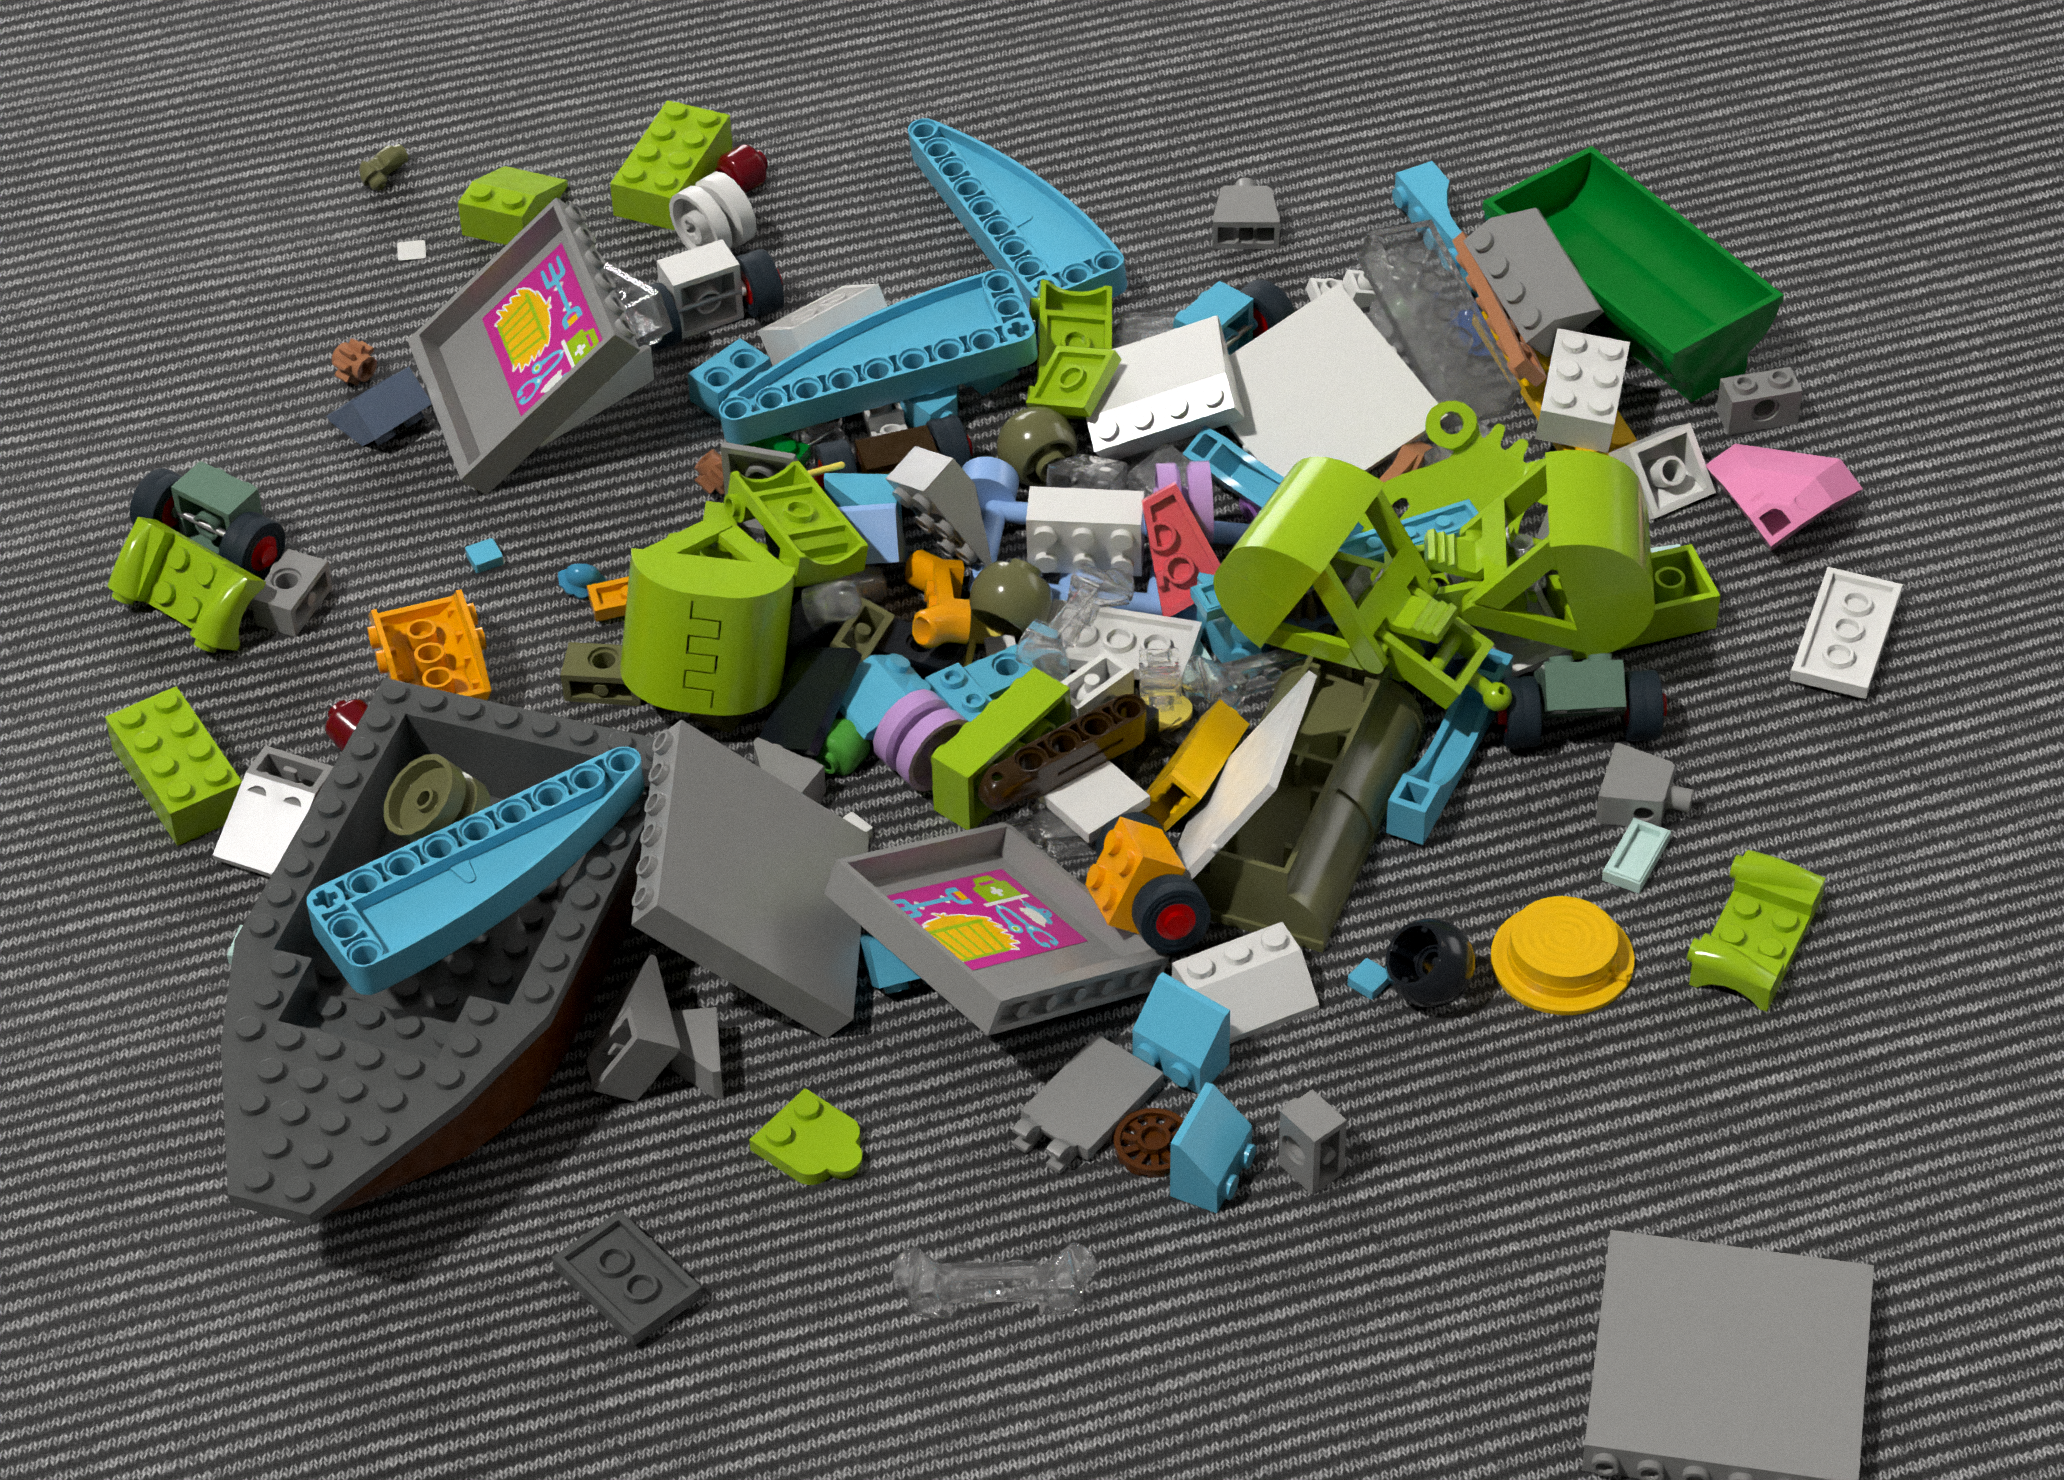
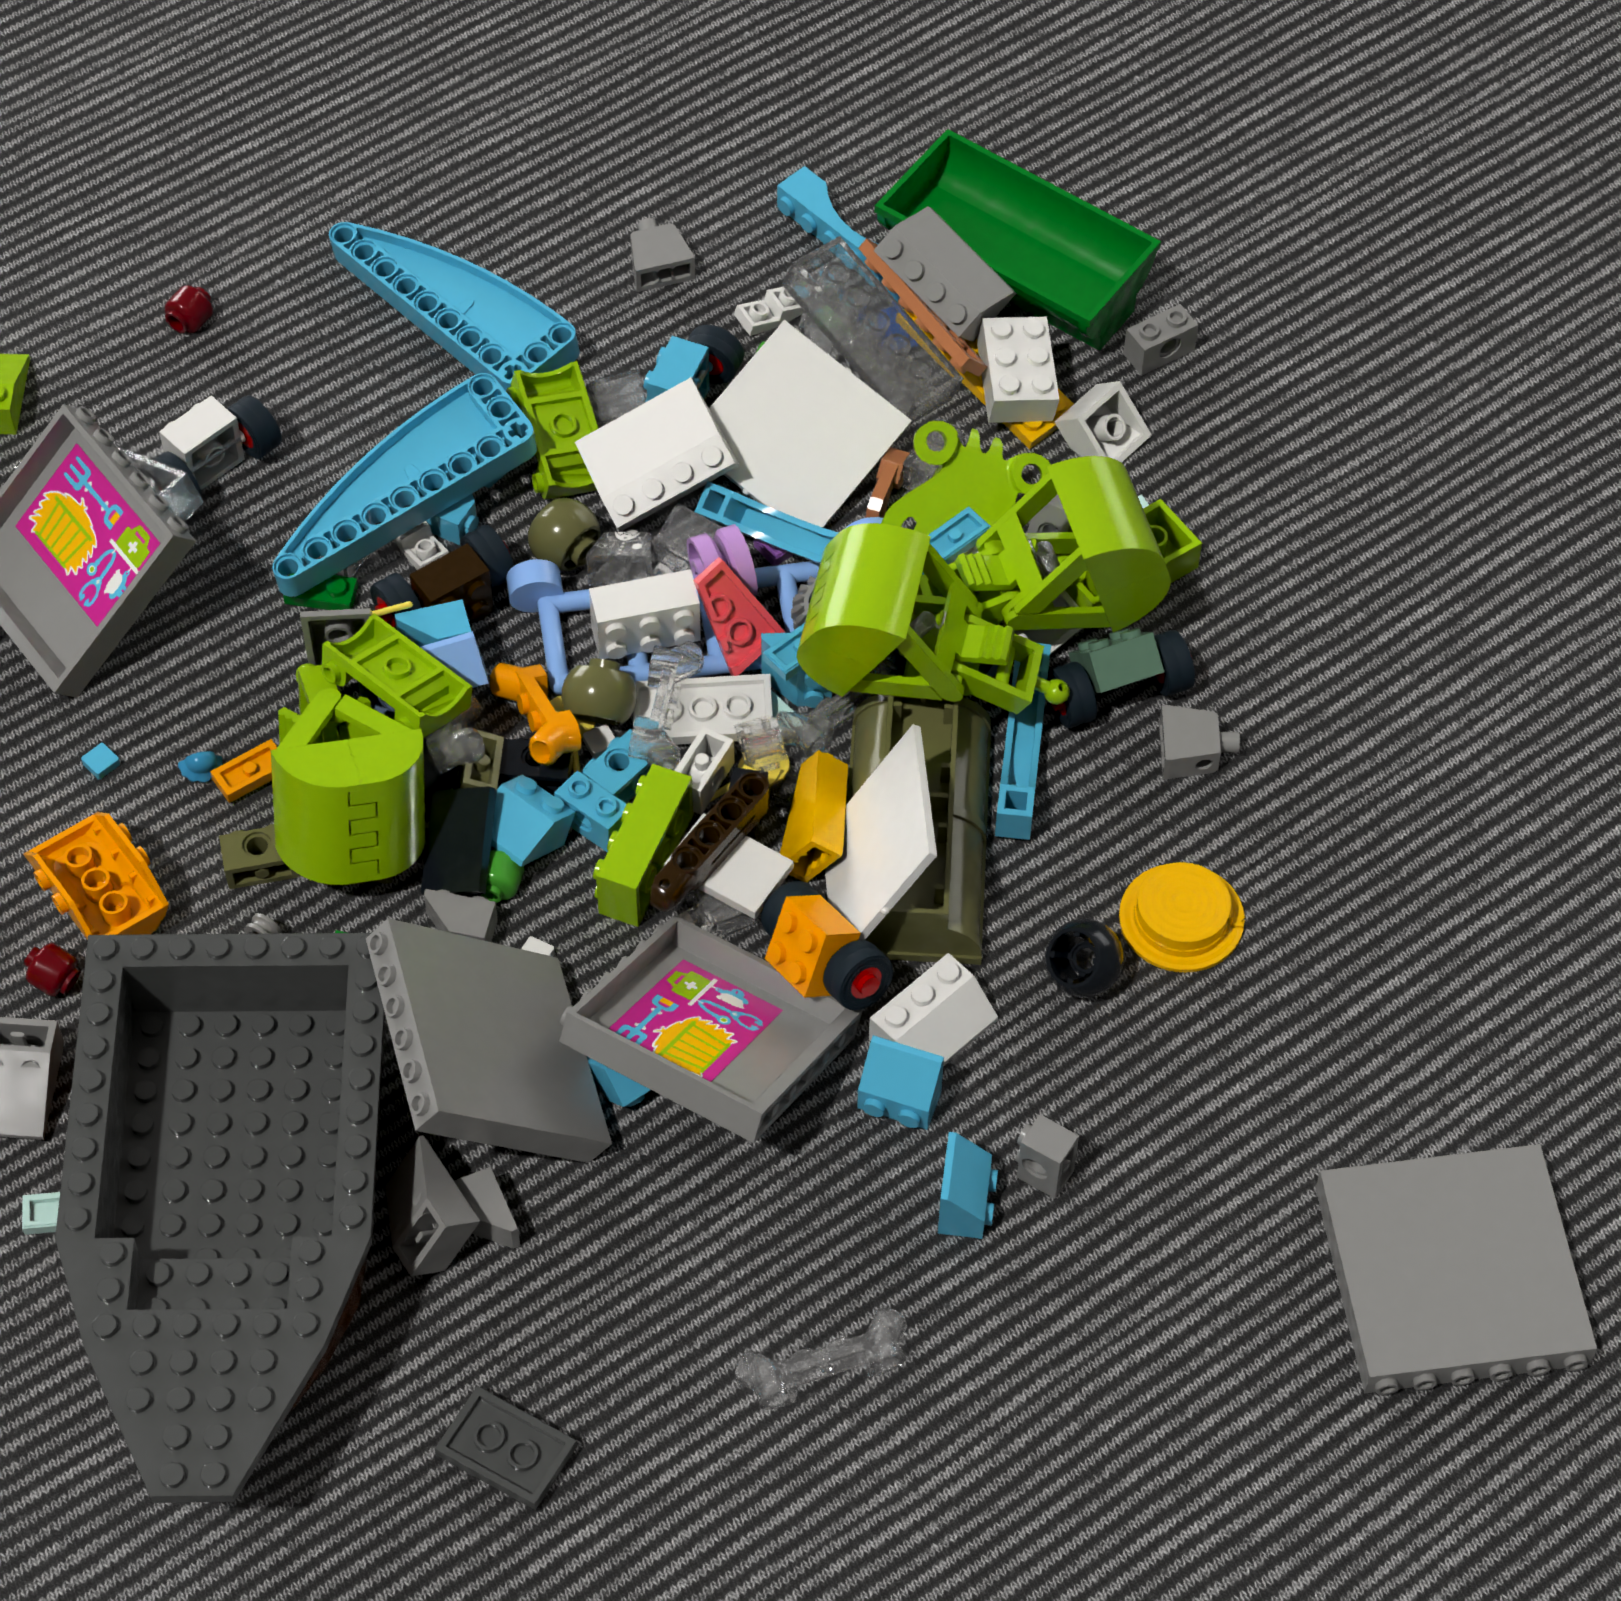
camera: 20 degrees left, 10 degrees up
(430, 797) = (194, 1059): olive wheel -> none
(470, 875) = (250, 1145): medium azure beam -> none
(669, 157) = (123, 320): lime brick -> none
(710, 472) = (283, 626): nougat gear -> none
(713, 212) = (185, 367): white wheel -> none
(725, 375) = (260, 528): medium azure brick -> none
(810, 1141) = (614, 1268): lime plate -> none
(820, 319) = (328, 455): white brick -> none
(912, 734) = (571, 853): lavender wheel -> none
(943, 504) = (512, 619): light grey slope -> none
(1074, 380) = (580, 466): lime plate -> none
(1086, 1102) = (837, 1164): light grey tile -> none
(1147, 1142) = (906, 1187): reddish brown wheel -> none
(1368, 979) = (1030, 980): medium azure piece -> none
(1636, 855) = (1208, 803): light aqua tile -> none
(1758, 927) = (1333, 849): lime piece -> none
(1781, 488) = (1210, 422): bright pink brick -> none
(1846, 632) = (1307, 546): white plate -> none

